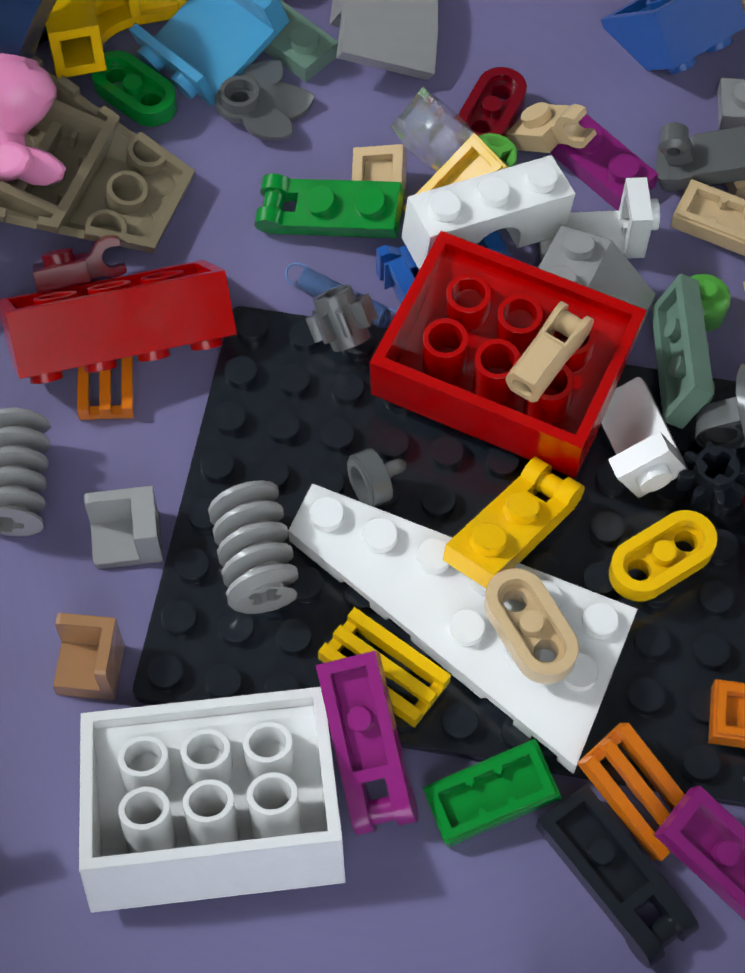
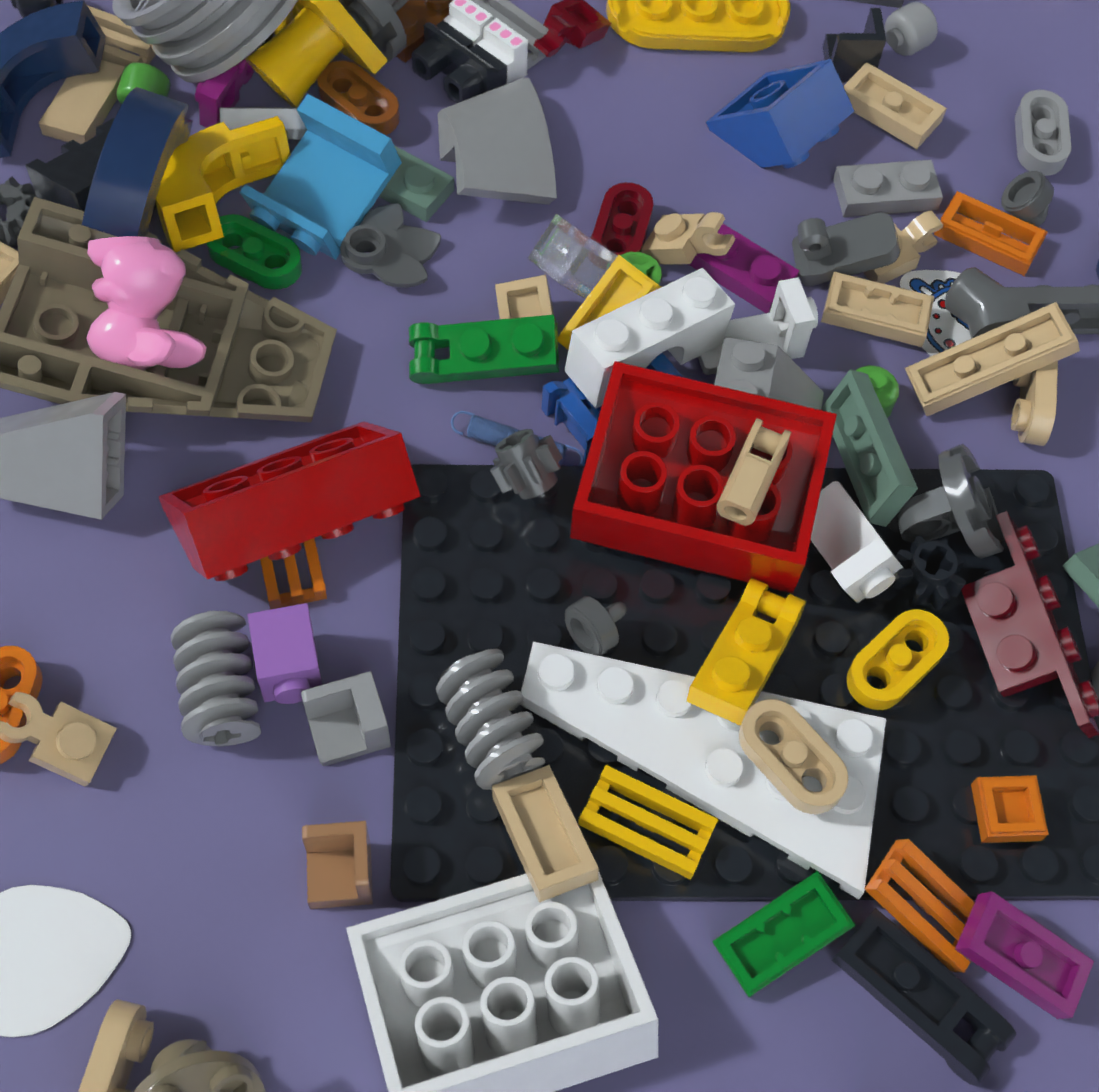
camera: 15 degrees left, 0 degrees up
(64, 269) = (225, 453): dark red plate -> none
(78, 456) = (284, 653): none -> medium lavender brick
(282, 659) = (545, 833): none -> tan tile
(366, 741) = (649, 903): magenta plate -> none

